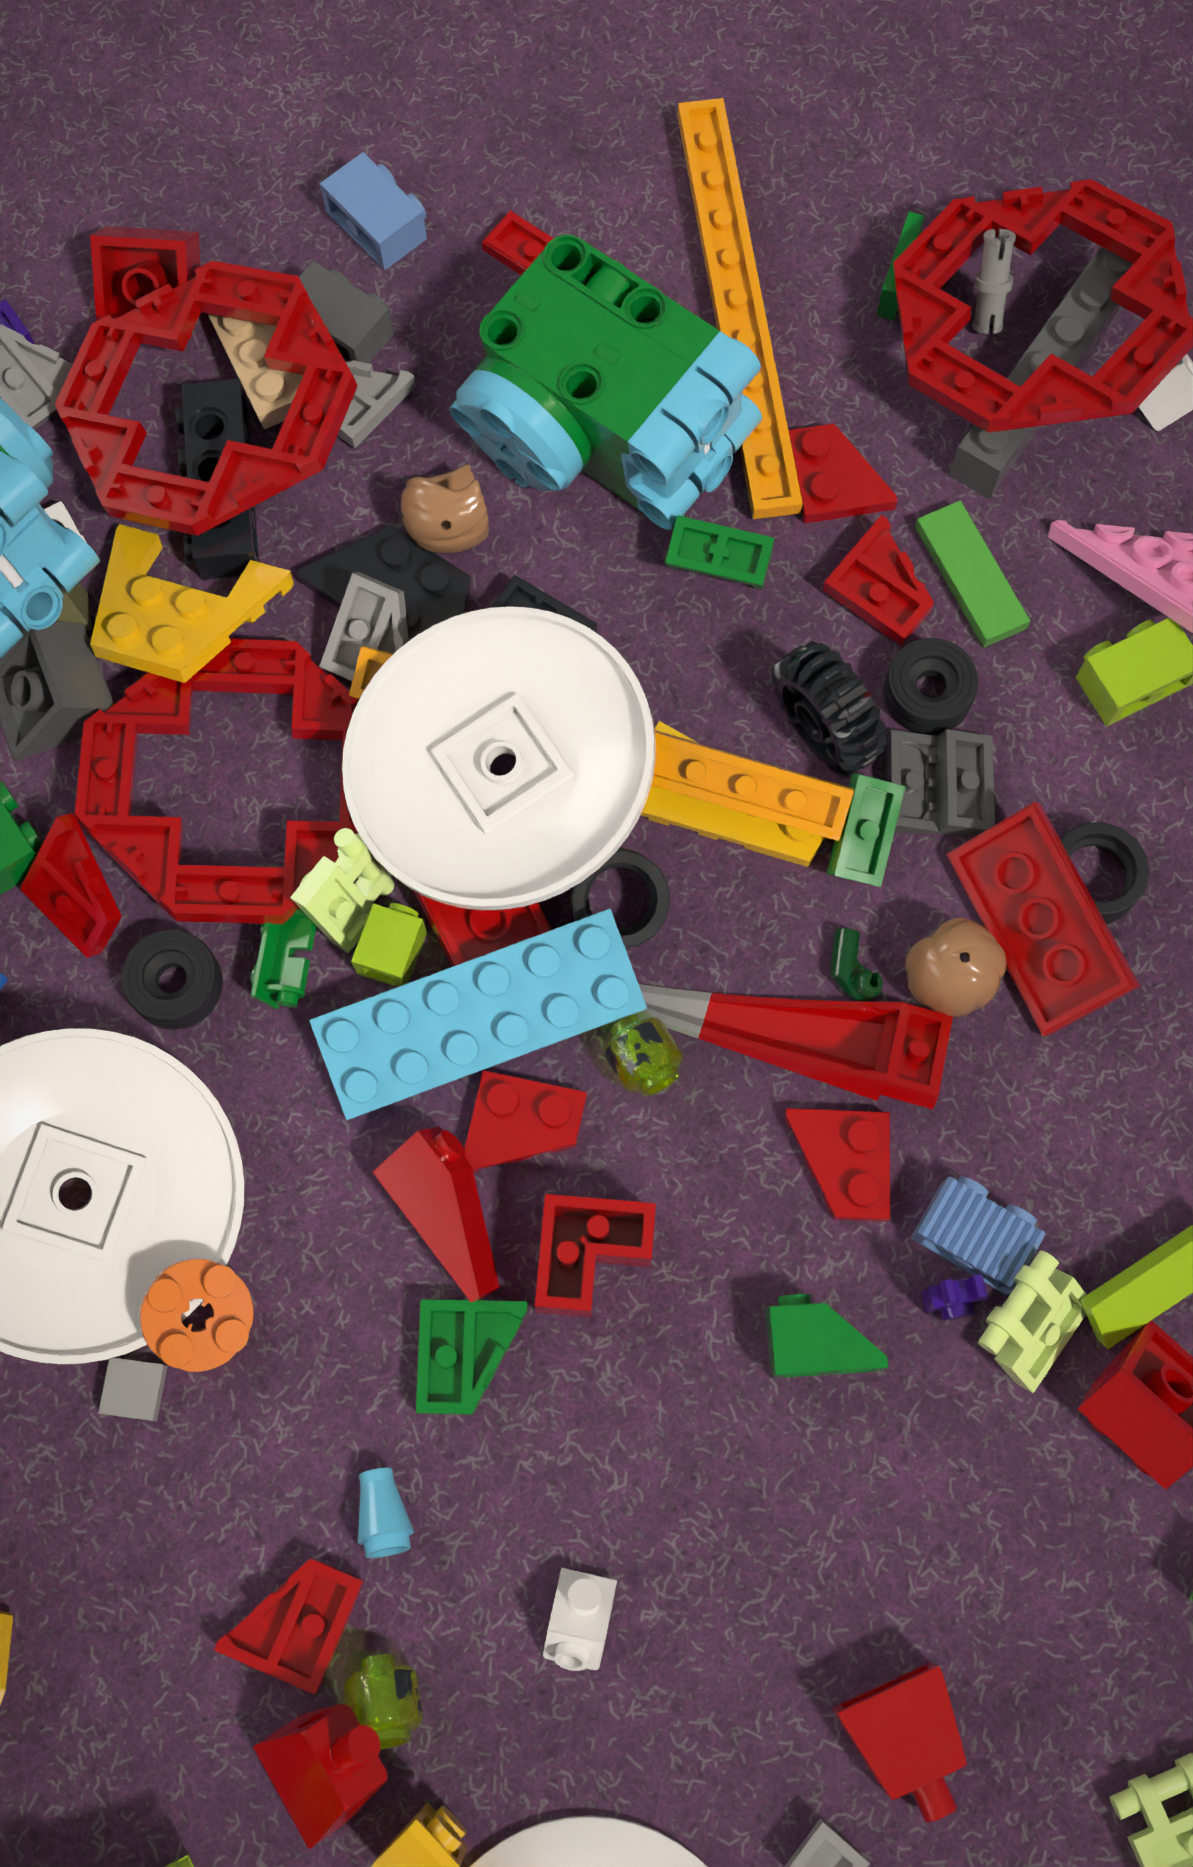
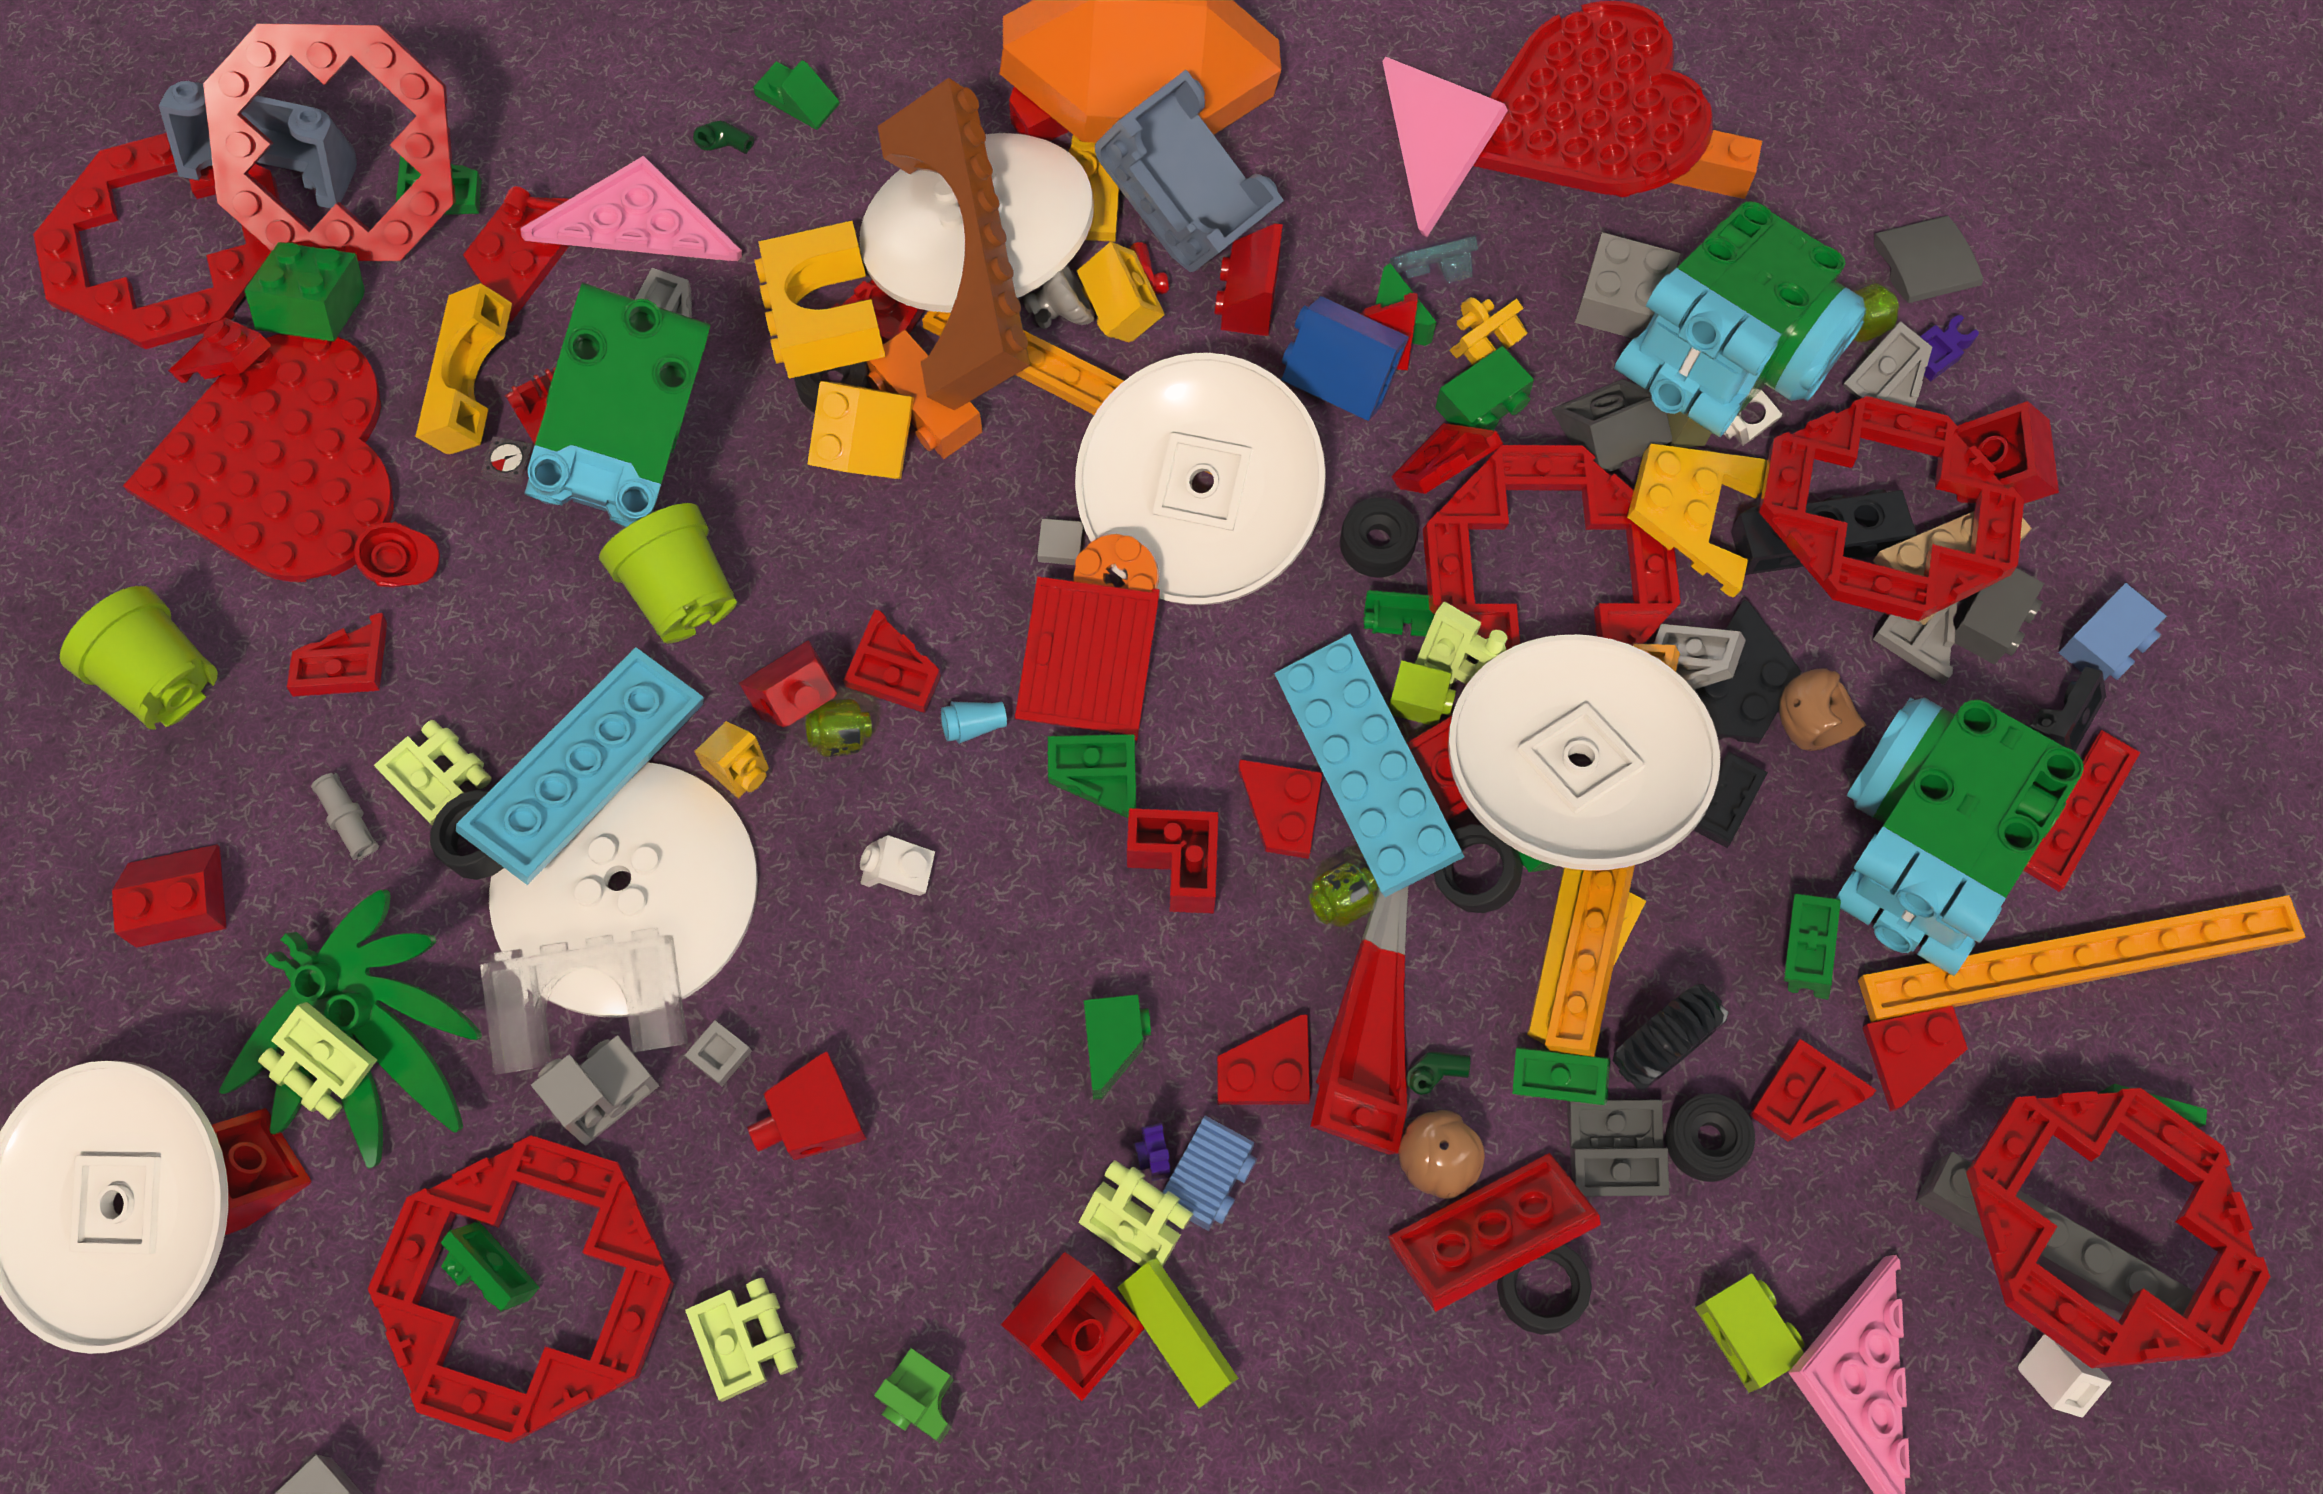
camera: 85 degrees right, 5 degrees down
(305, 1357) = (1087, 656): none -> red piece
(442, 1203) = (1208, 746): red slope -> none
(477, 278) = (2081, 706): none -> black hinge
(972, 574) = (1832, 1180): bright green tile -> none
(993, 281) = (2144, 1191): light grey pin -> none

